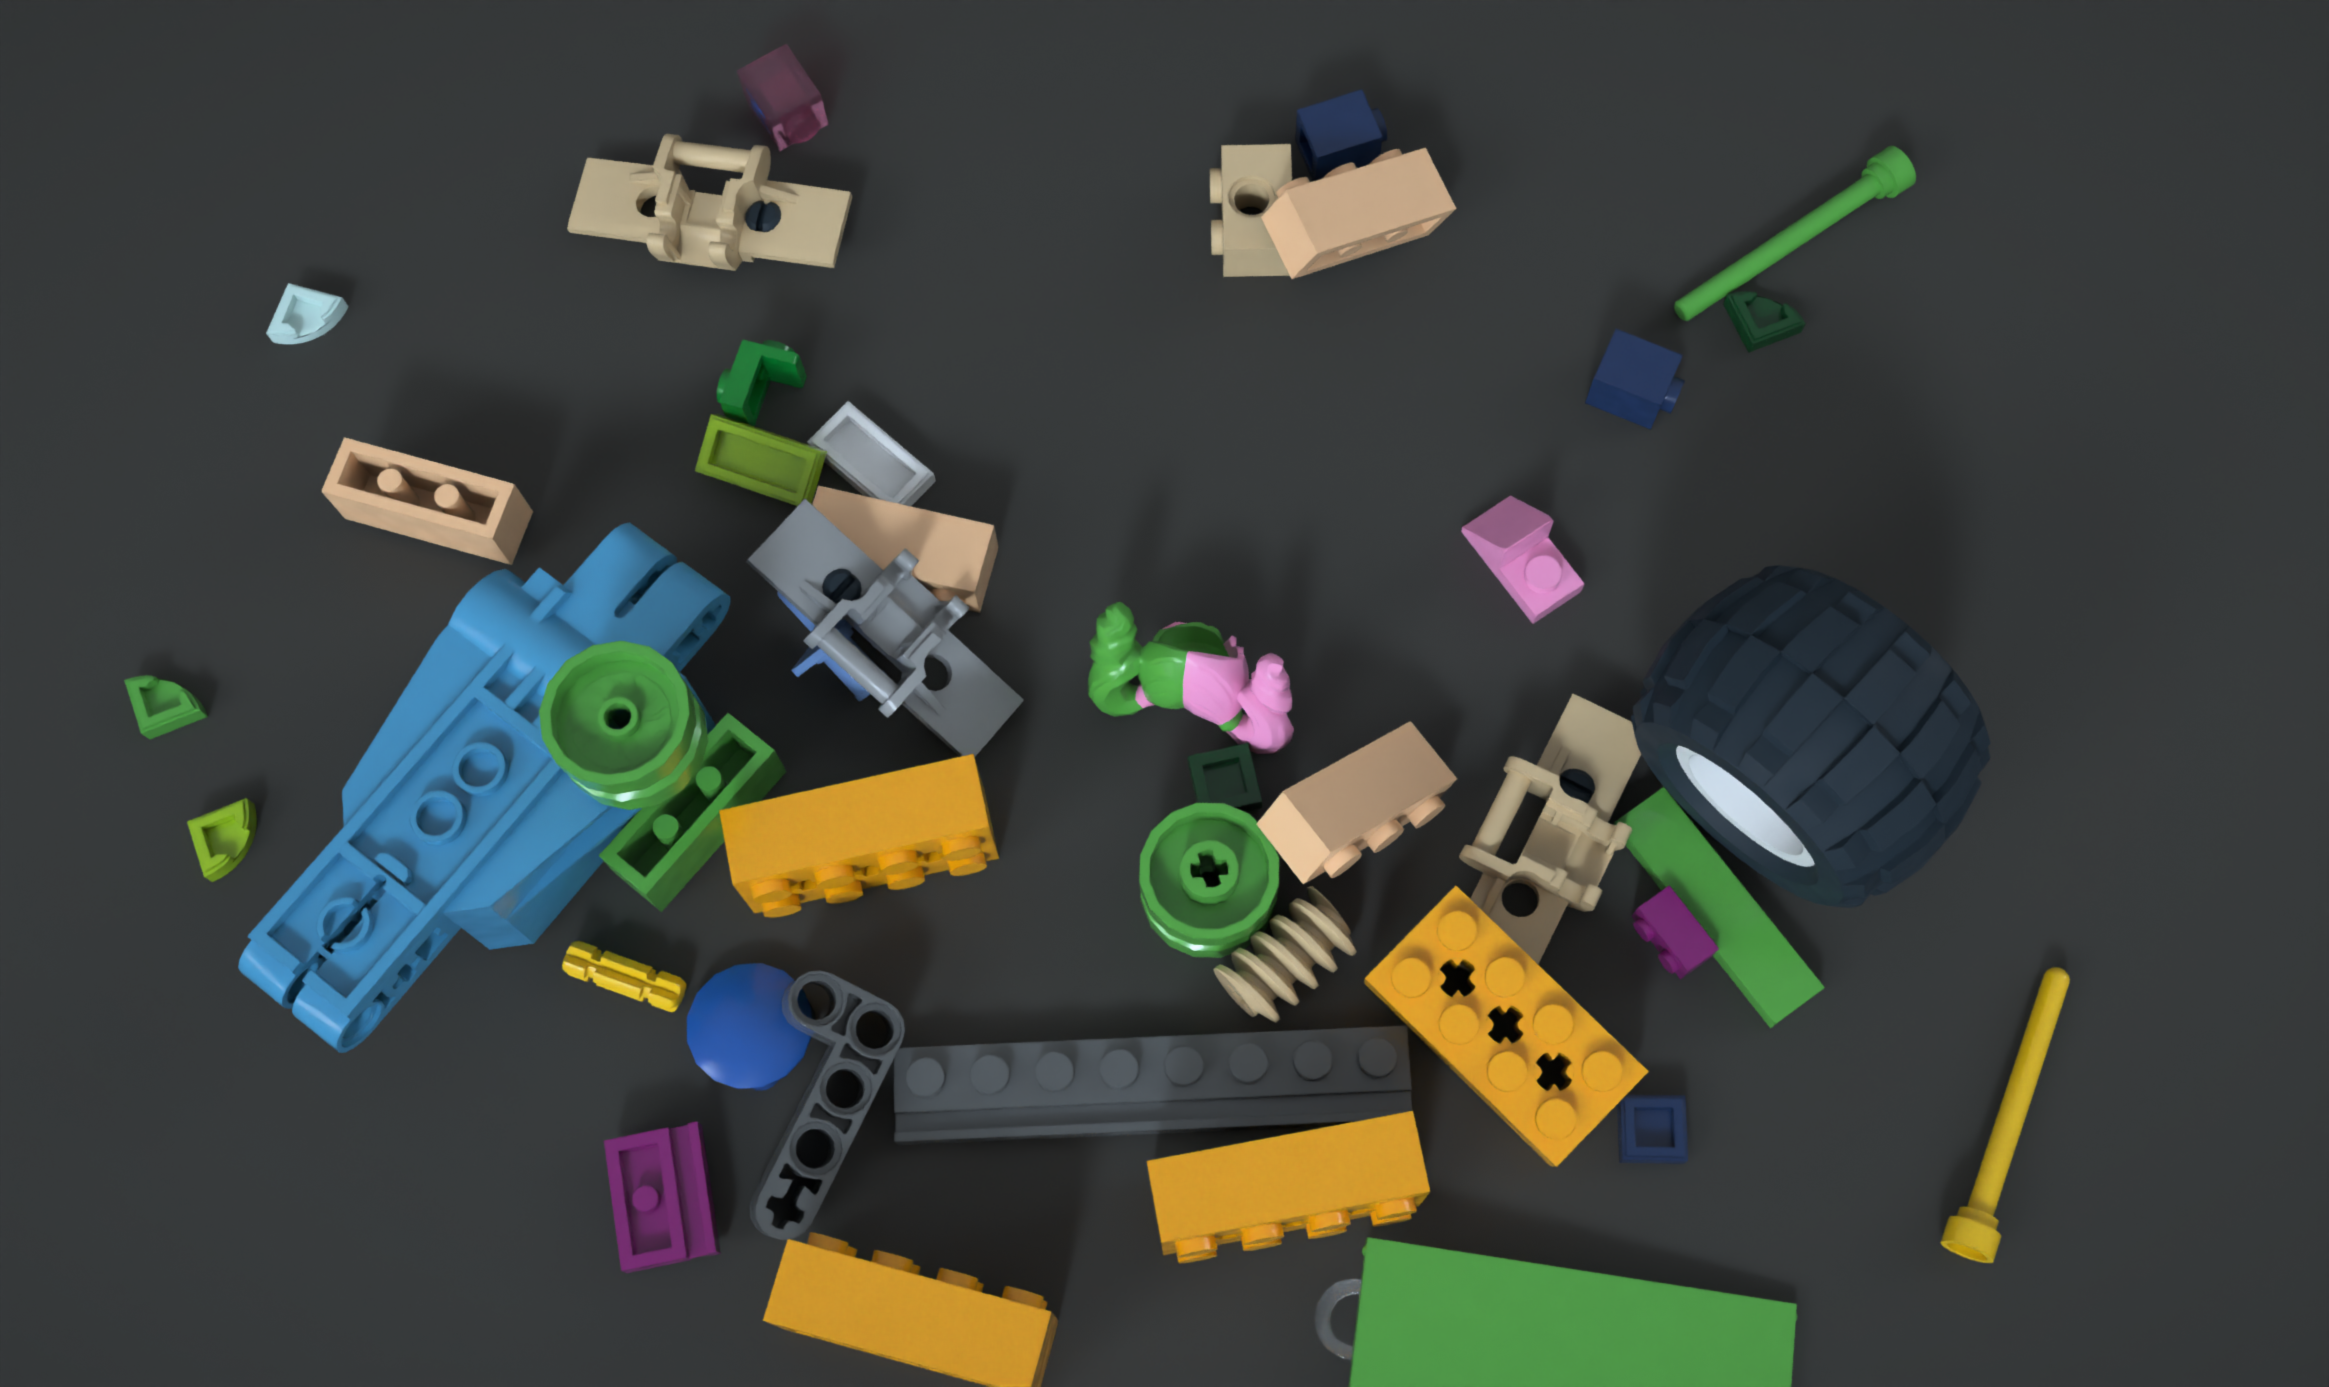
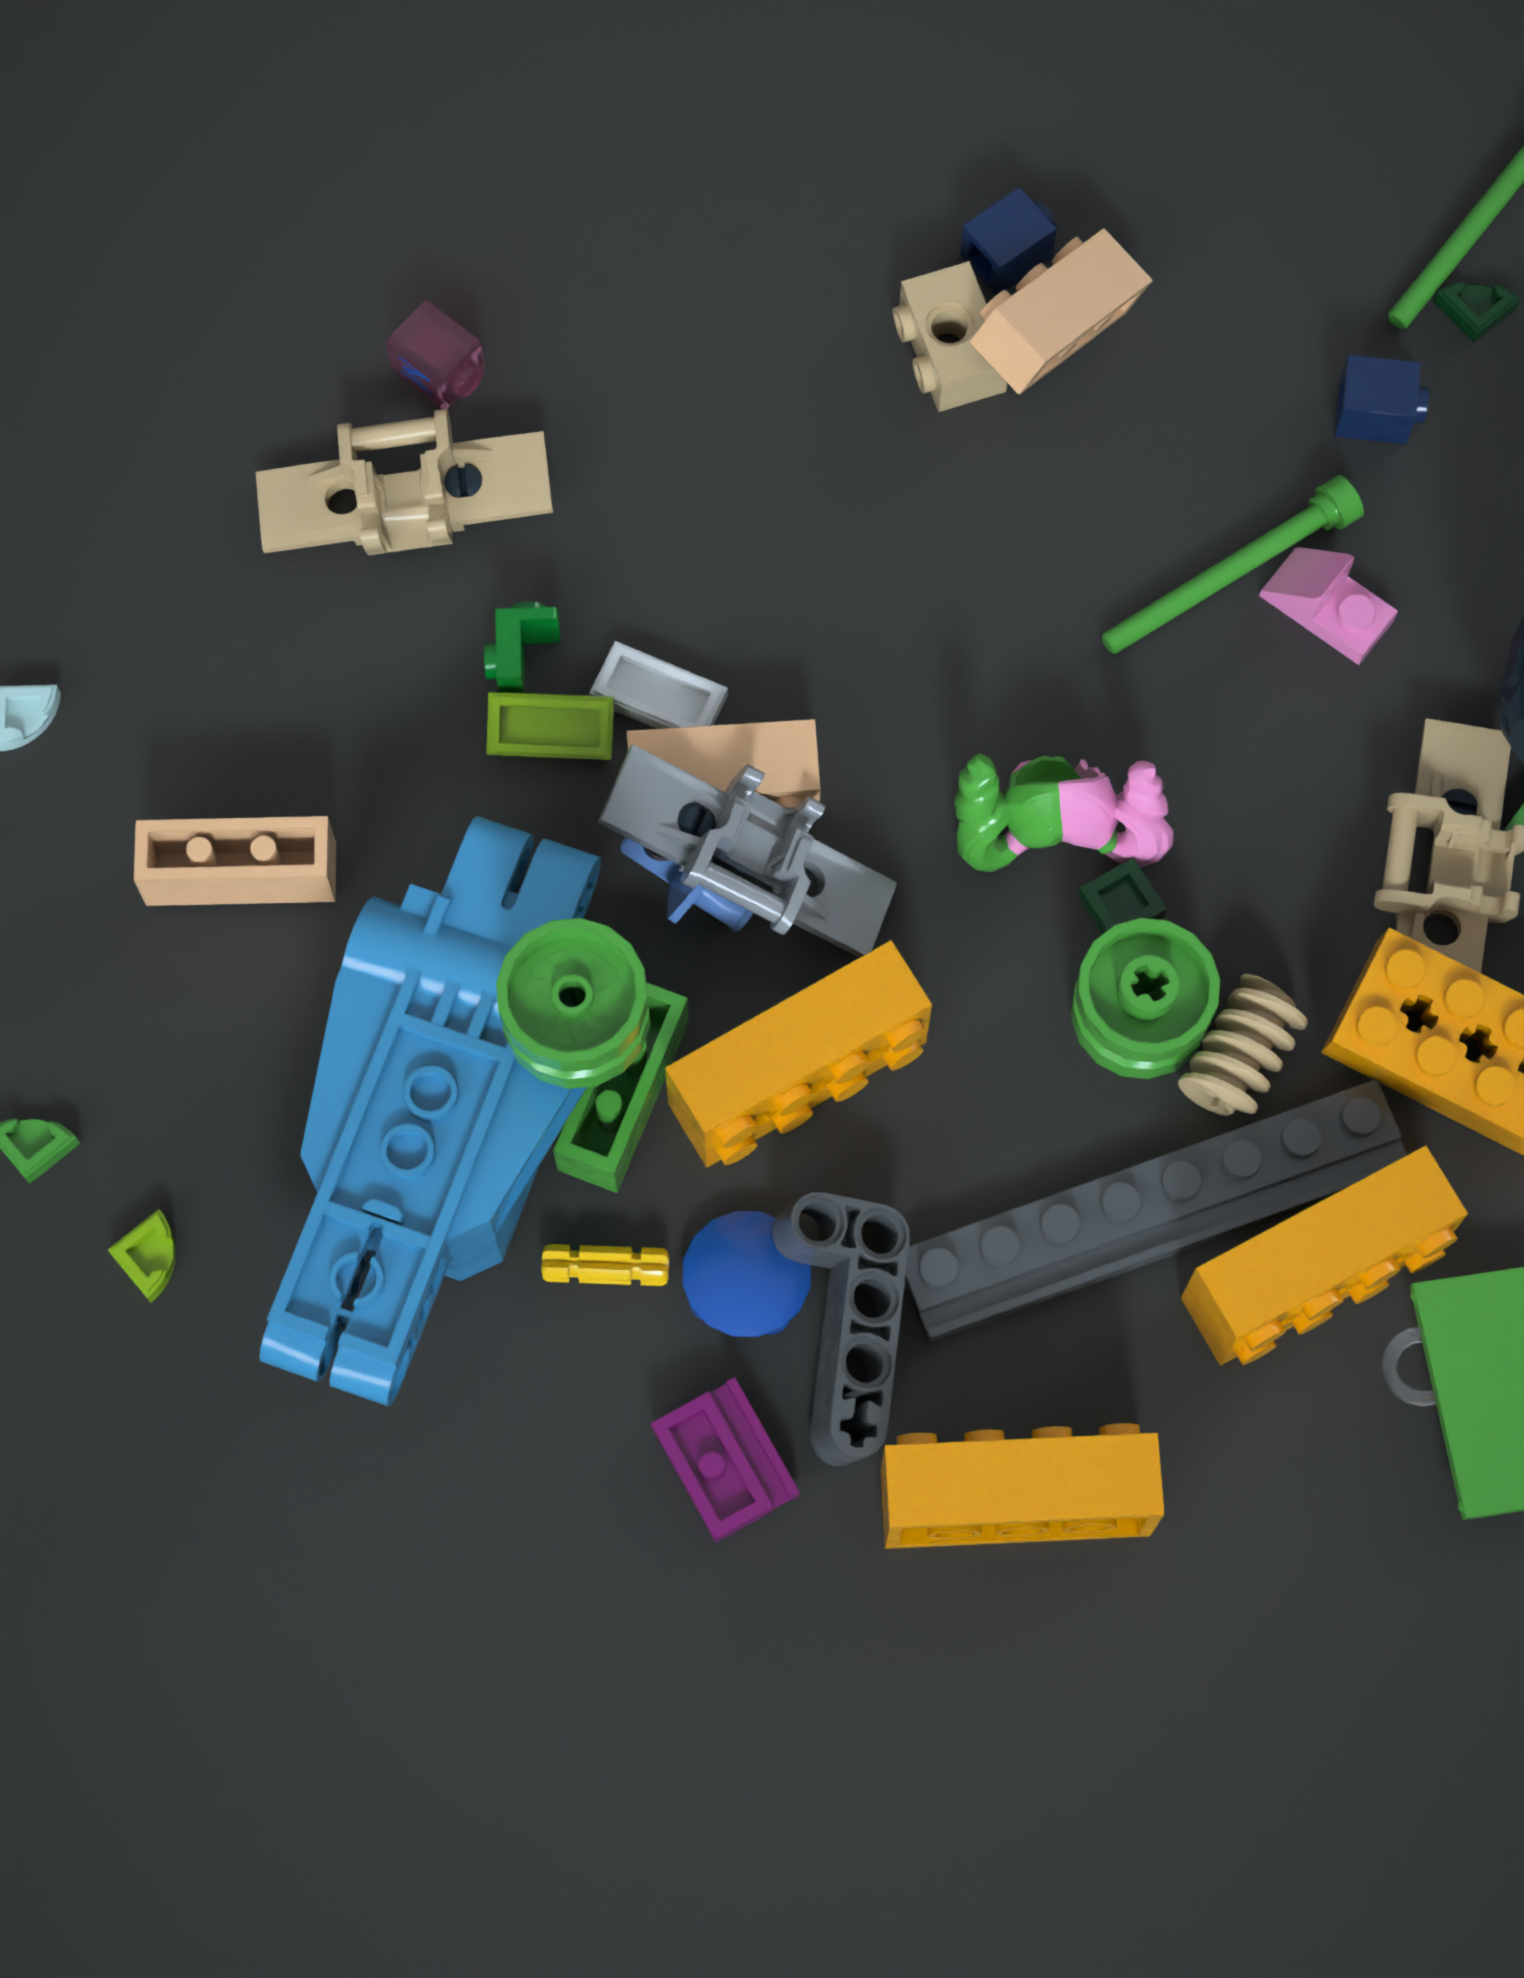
camera: 20 degrees left, 0 degrees up
(1357, 804) = (1266, 882): light nougat brick -> none
(1556, 467) = (1333, 506): none -> bright green piece

